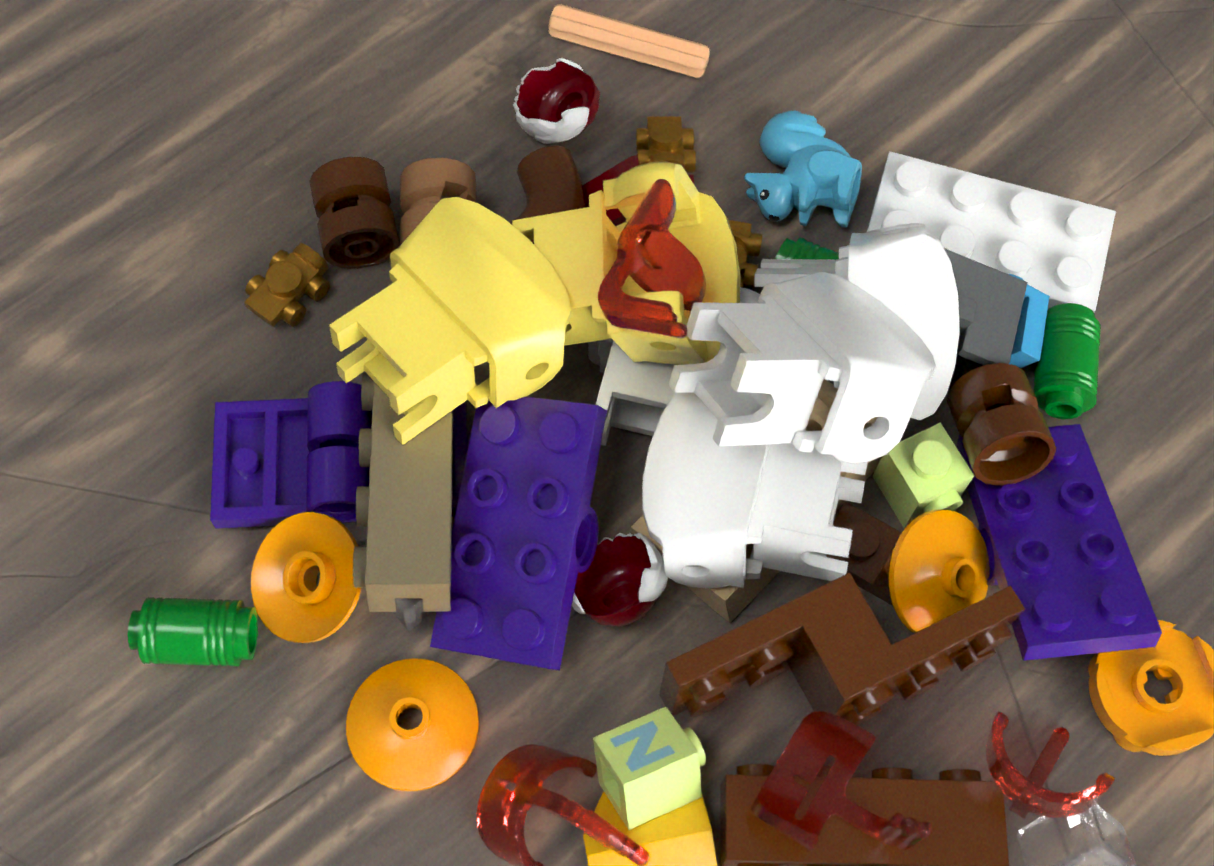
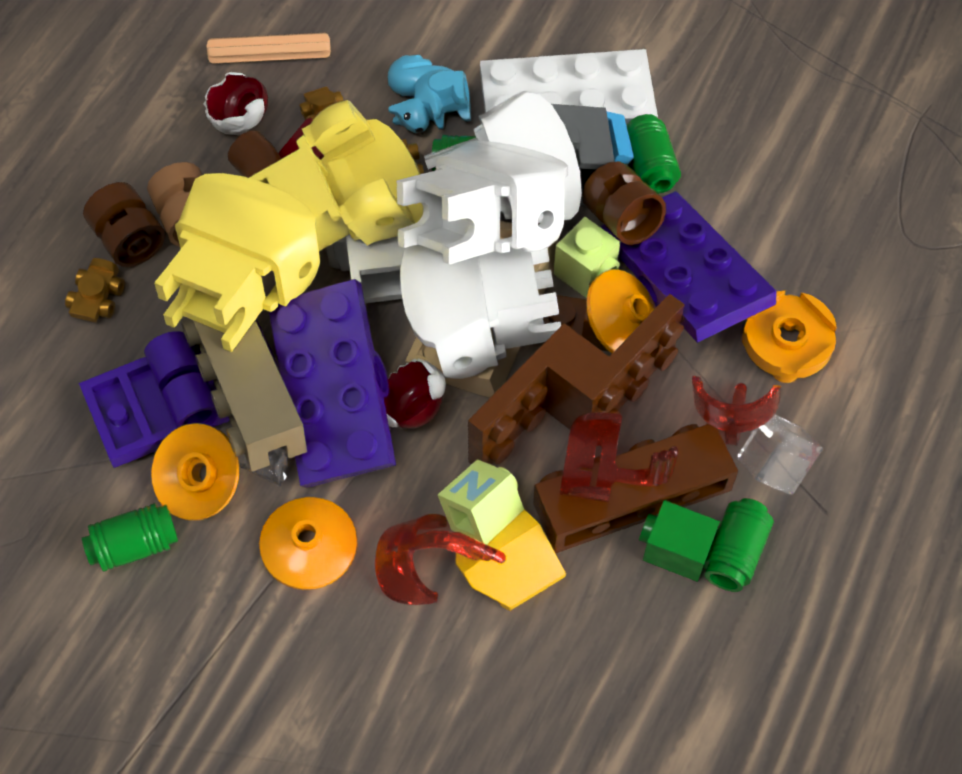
camera: 20 degrees left, 5 degrees down
(671, 270) = (358, 168): clear red helmet -> none

